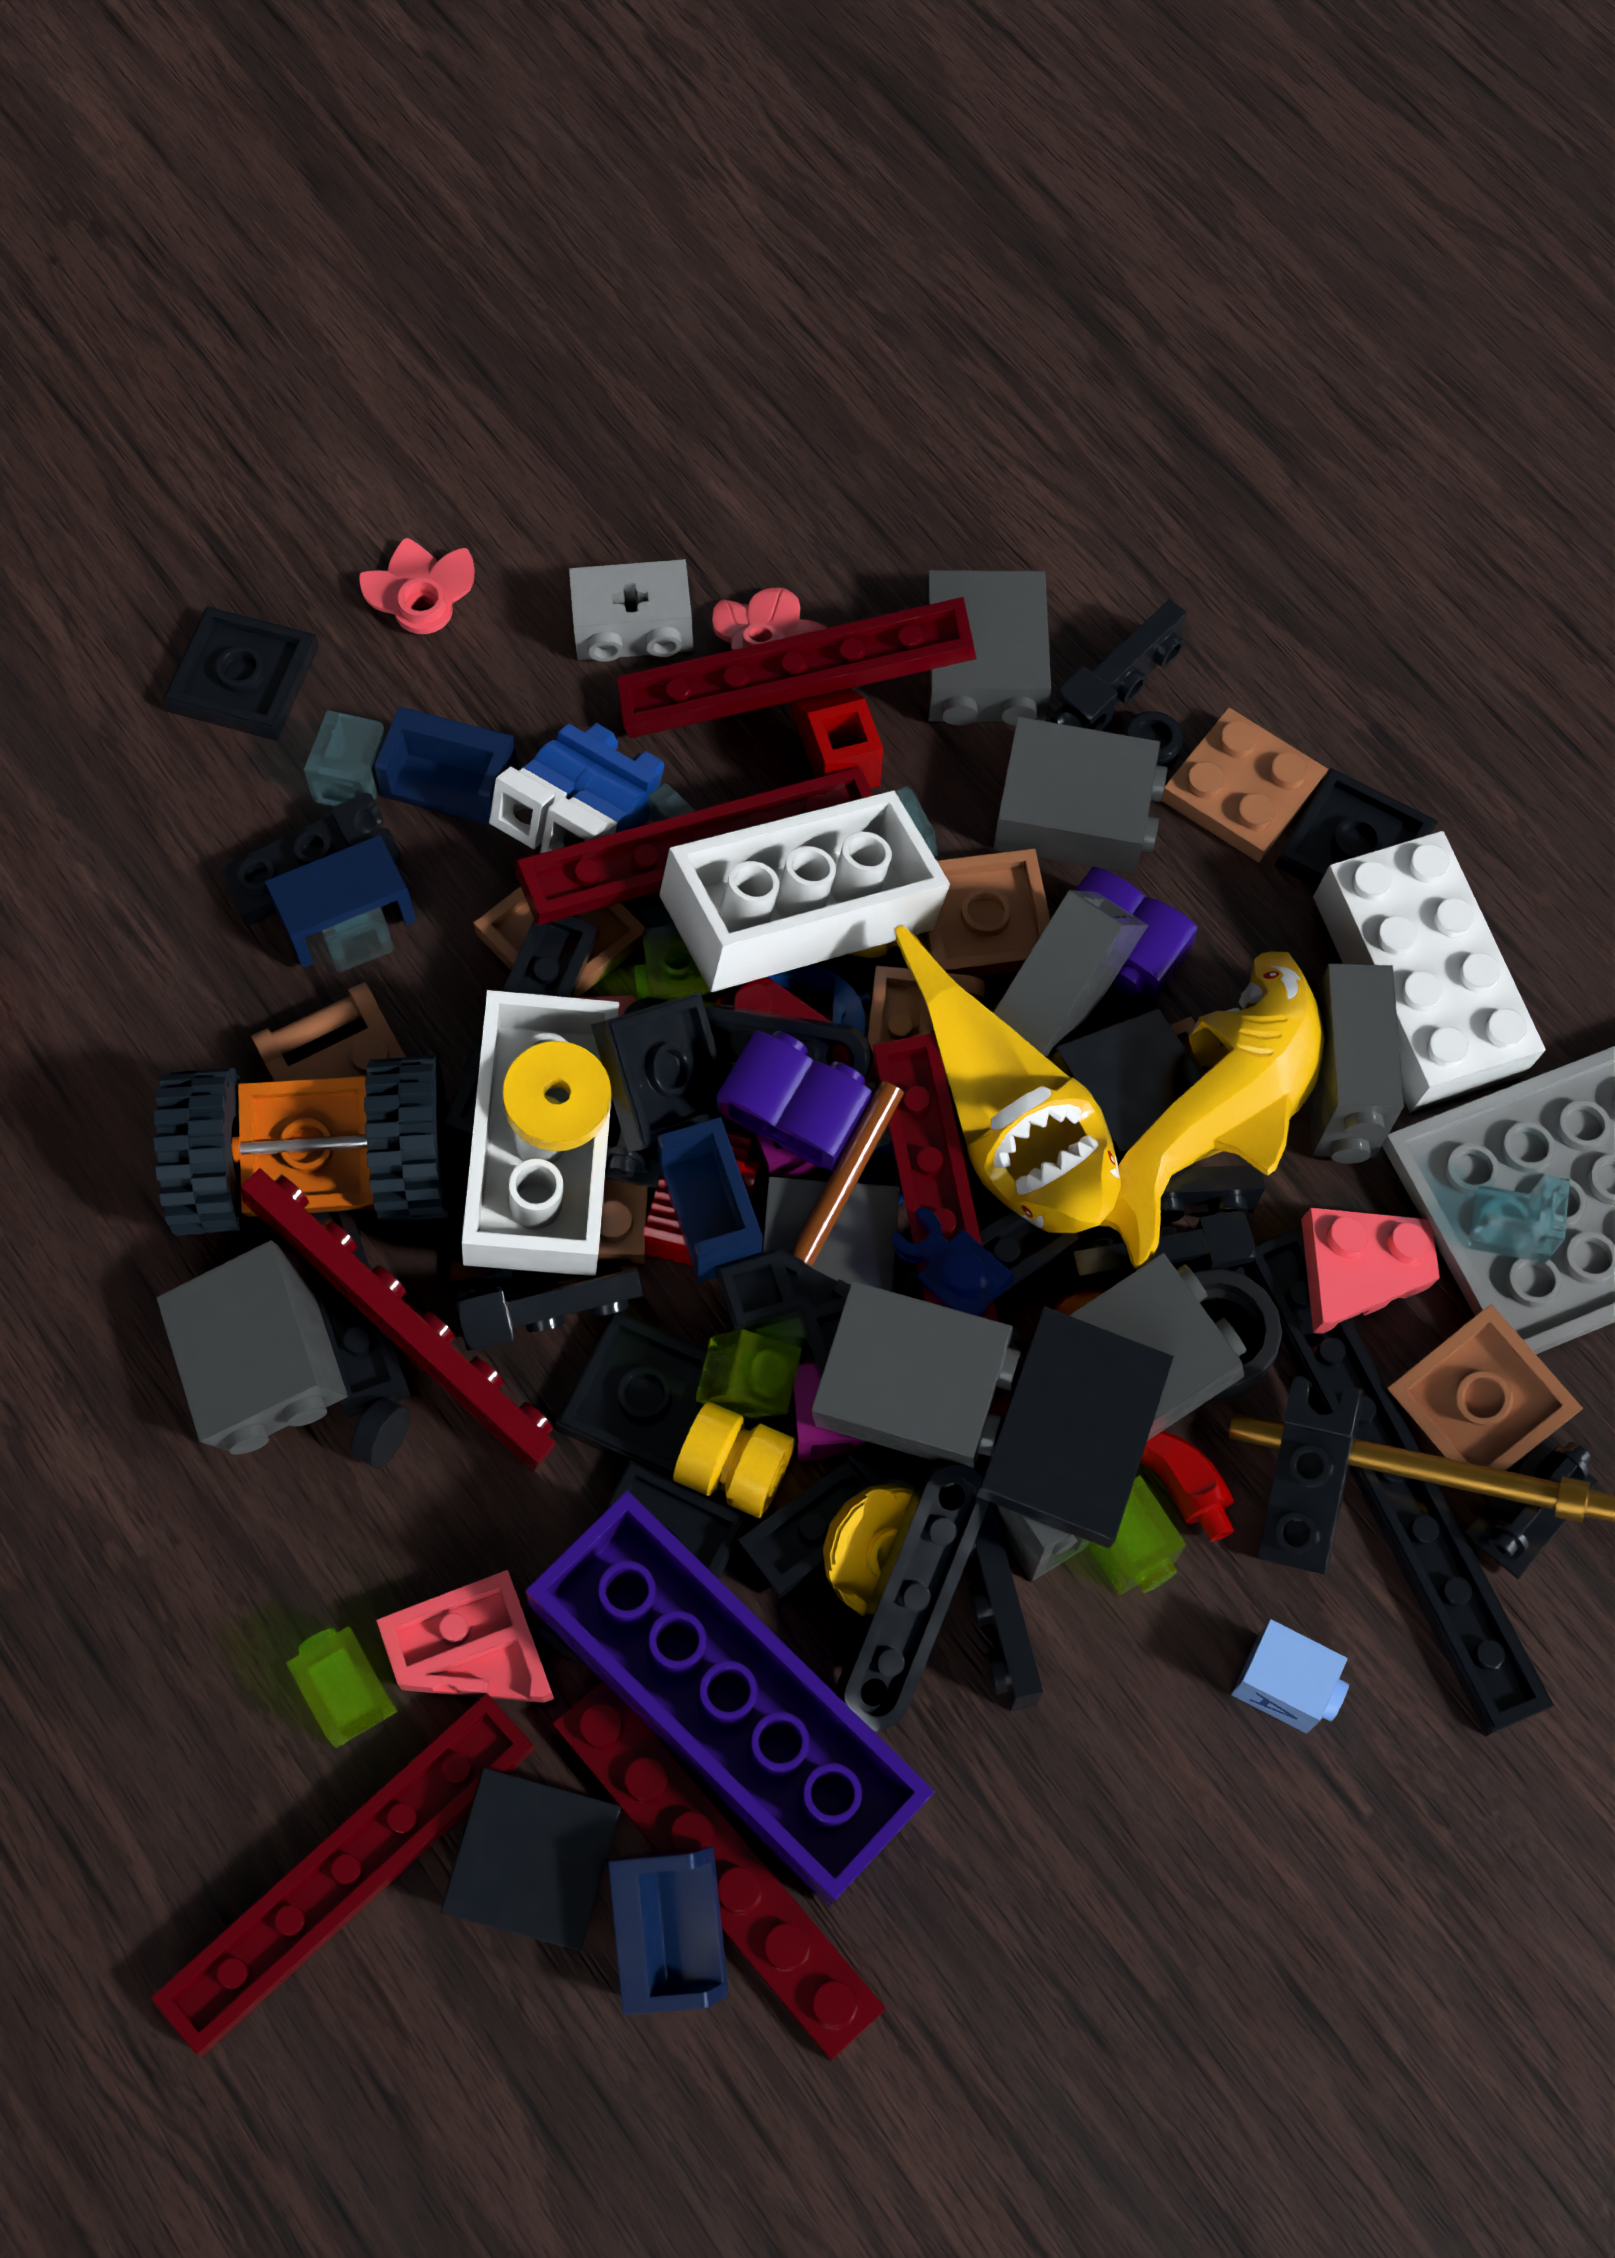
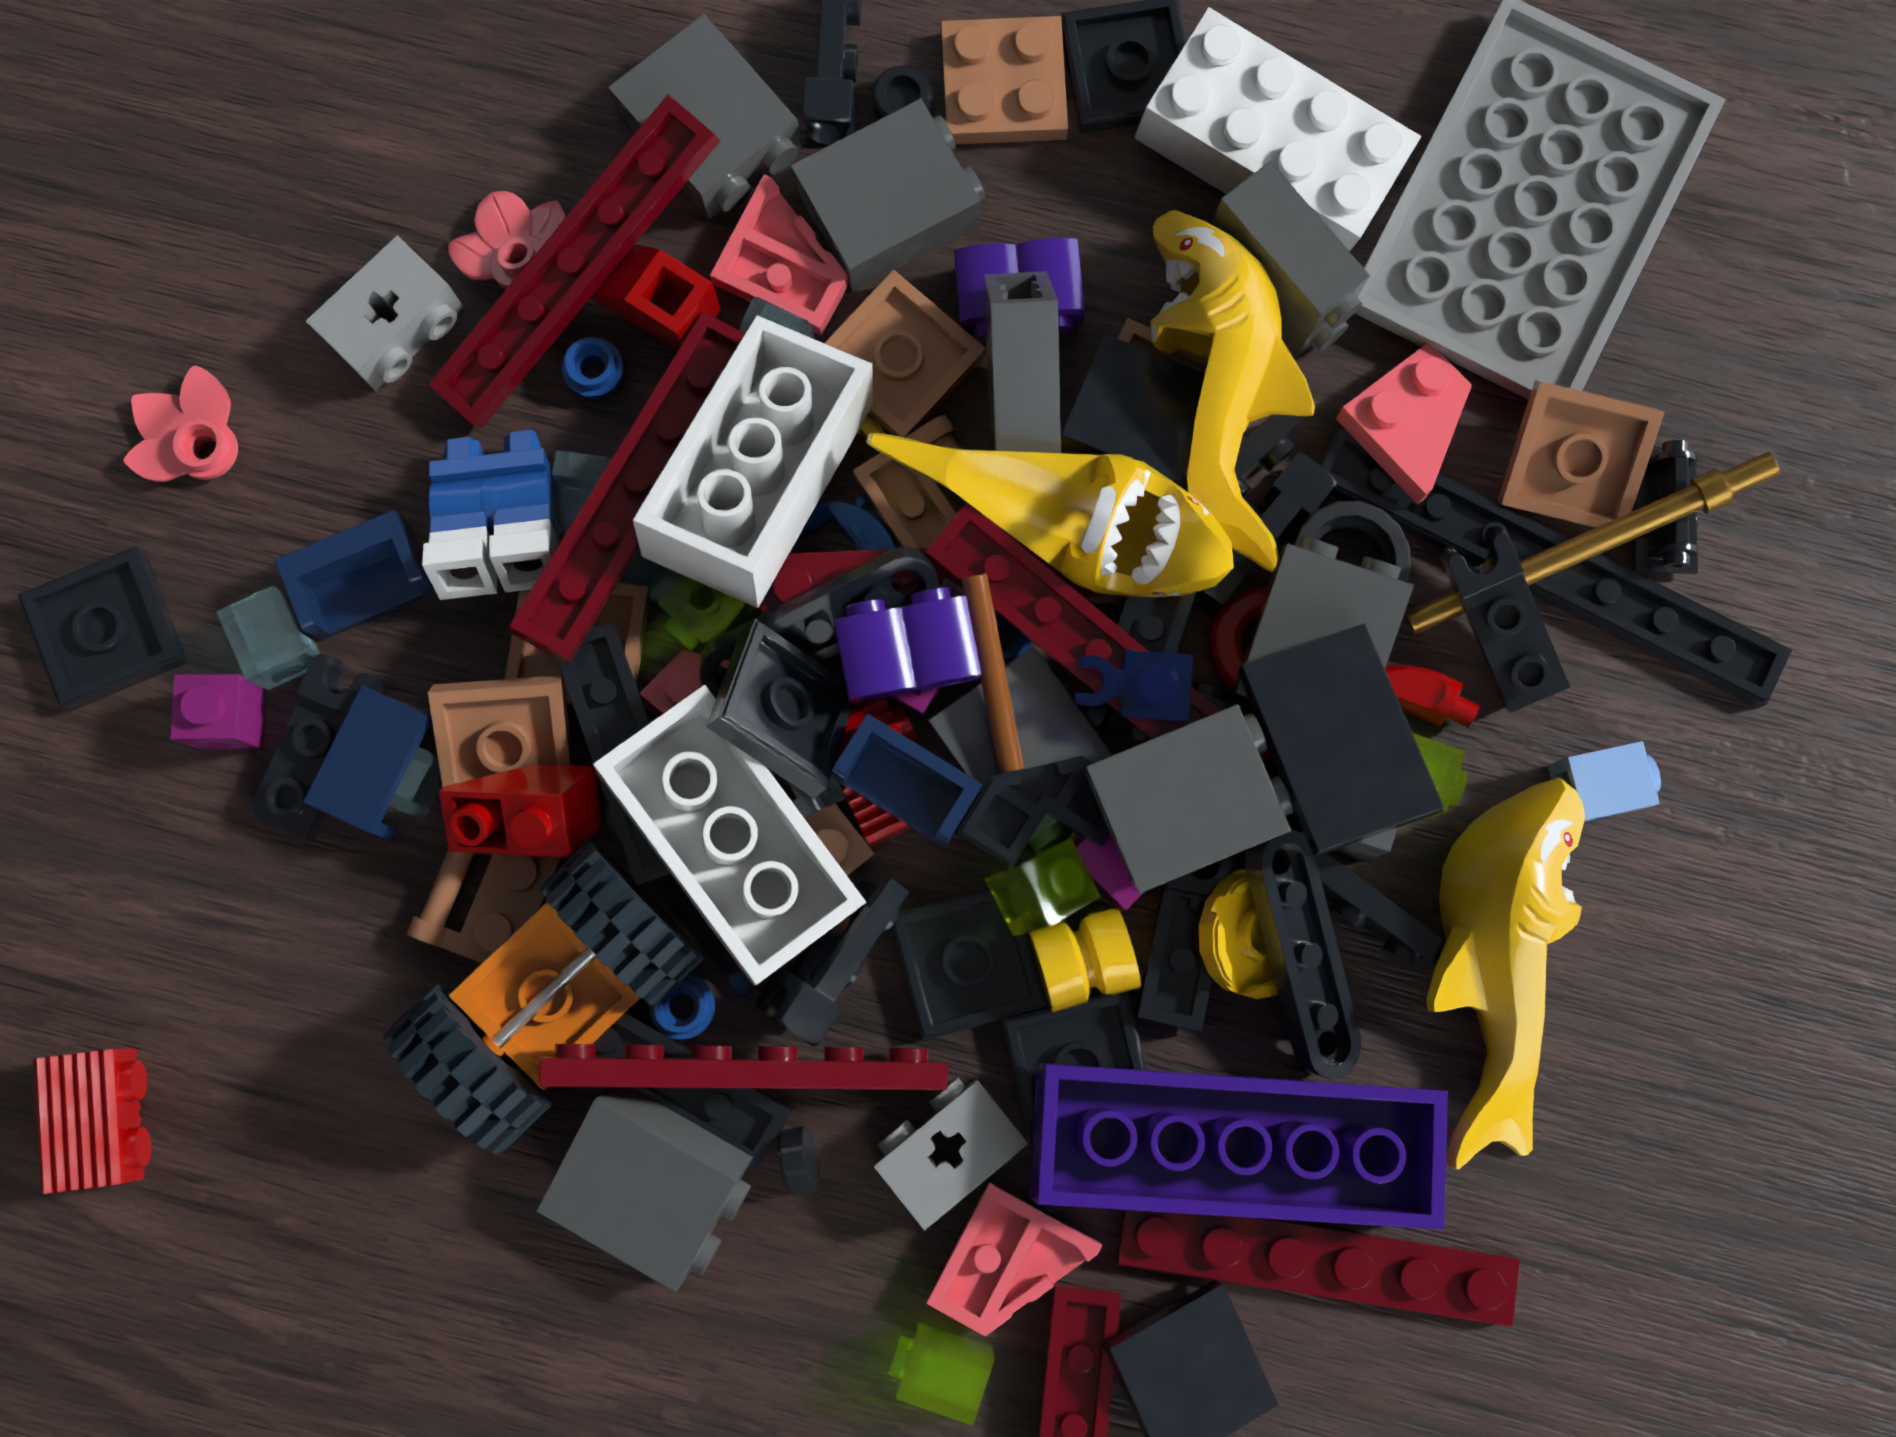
camera: 40 degrees left, 15 degrees up
(265, 781) = (217, 711): none -> magenta brick
(398, 1233) = (704, 1010): none -> blue plate
(411, 1006) = (523, 811): none -> red slope
(441, 956) = (499, 726): none -> nougat plate
(465, 1499) = (932, 1187): none -> light grey brick
(556, 1125) = (733, 774): yellow piece -> none
(668, 1930) = (1335, 1344): dark blue panel -> none
(747, 741) = (588, 351): none -> blue plate
(955, 783) = (780, 260): none -> coral wing
(1061, 1730) = (1498, 914): none -> yellow piece
(1521, 1223) = (1505, 292): clear light blue panel -> none

